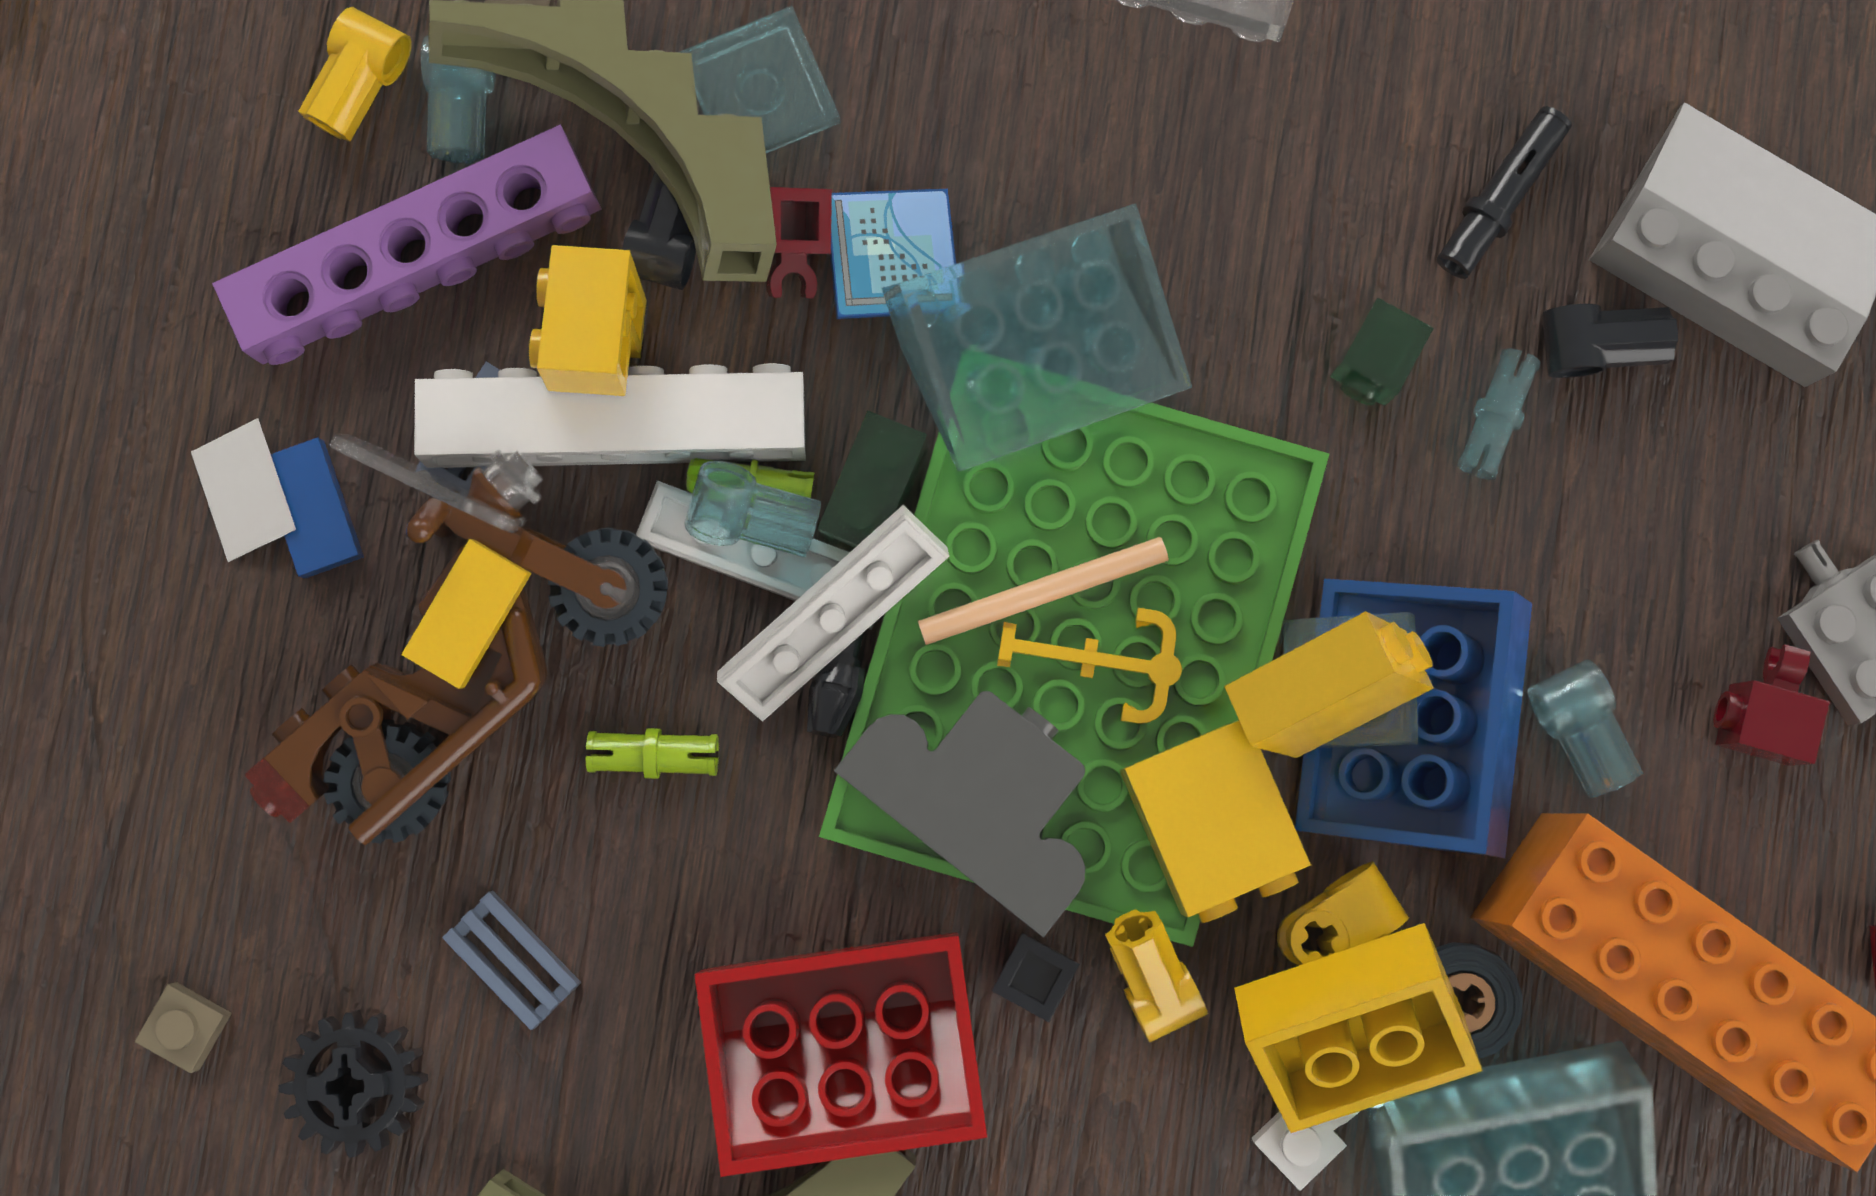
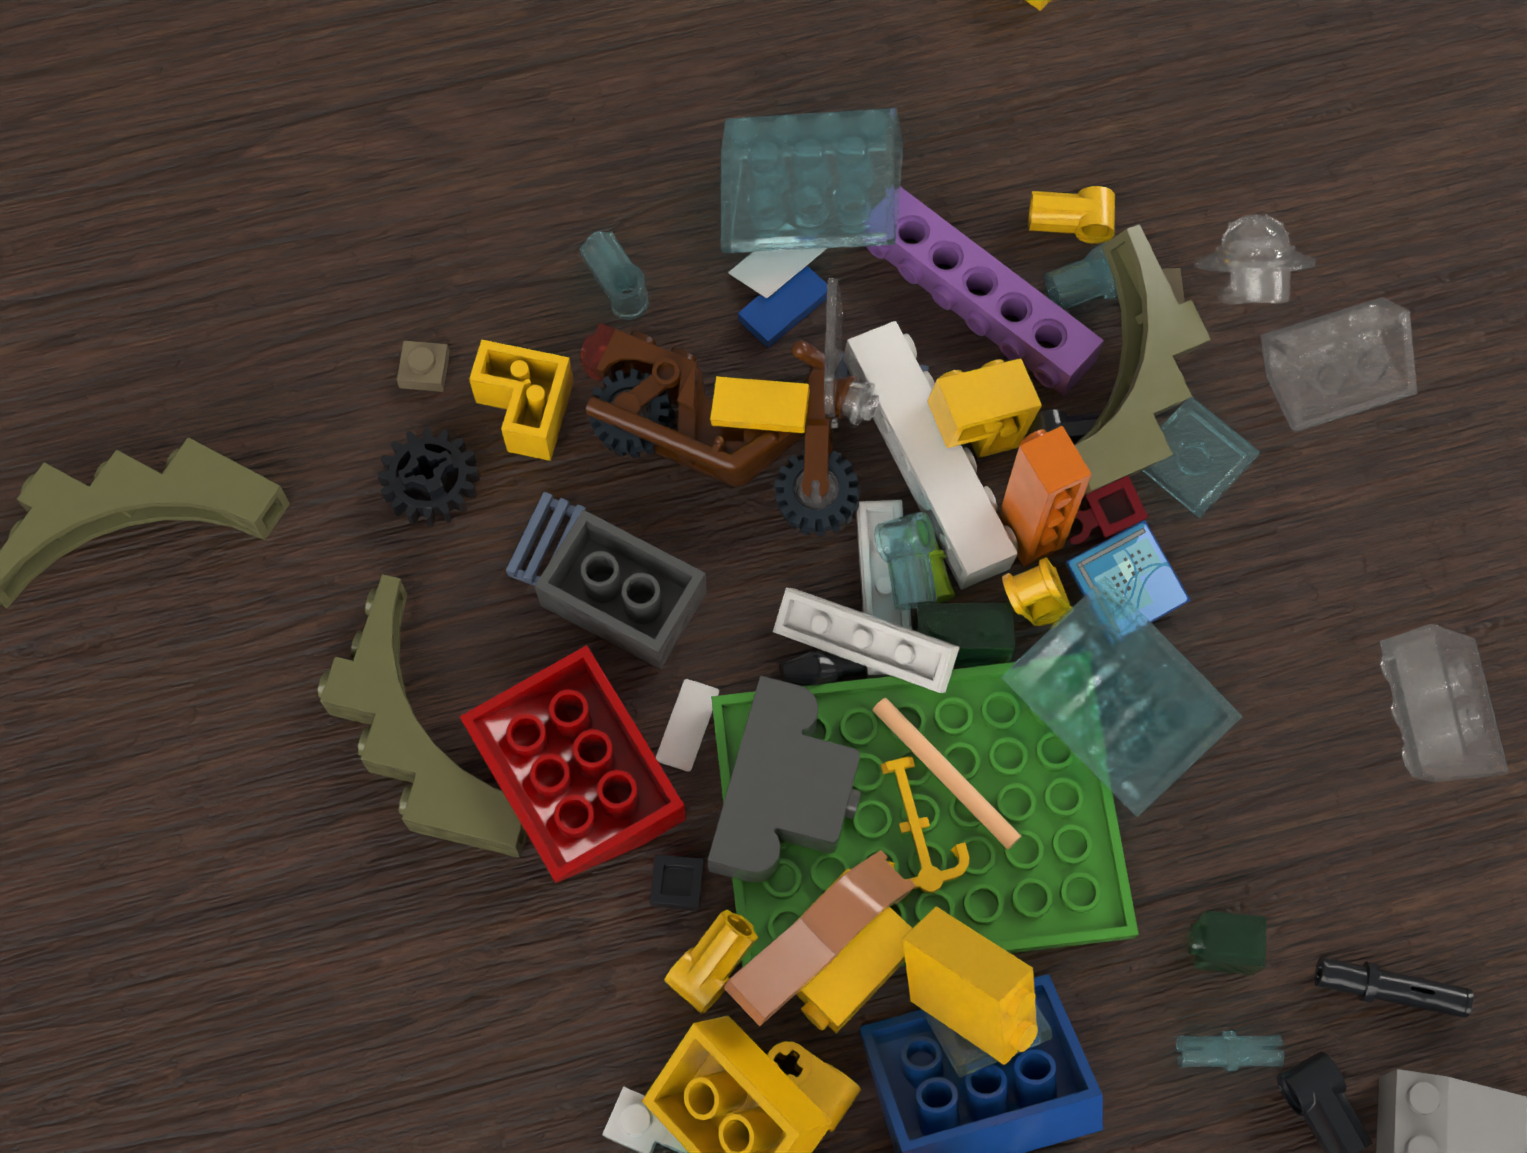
camera: 65 degrees right, 15 degrees down
(151, 397) = (810, 180): none -> clear light blue slope
(164, 715) = (616, 274): none -> clear light blue piece
(291, 896) = (531, 388): none -> yellow brick
(626, 894) = (621, 589): none -> dark grey brick
(652, 753) = (720, 571): lime pin -> none
(752, 305) = (1044, 493): none -> orange brick
(834, 878) = (687, 725): none -> white sticker
(862, 373) = (1037, 594): none -> yellow piece
(1200, 843) = (817, 937): none -> nougat piece

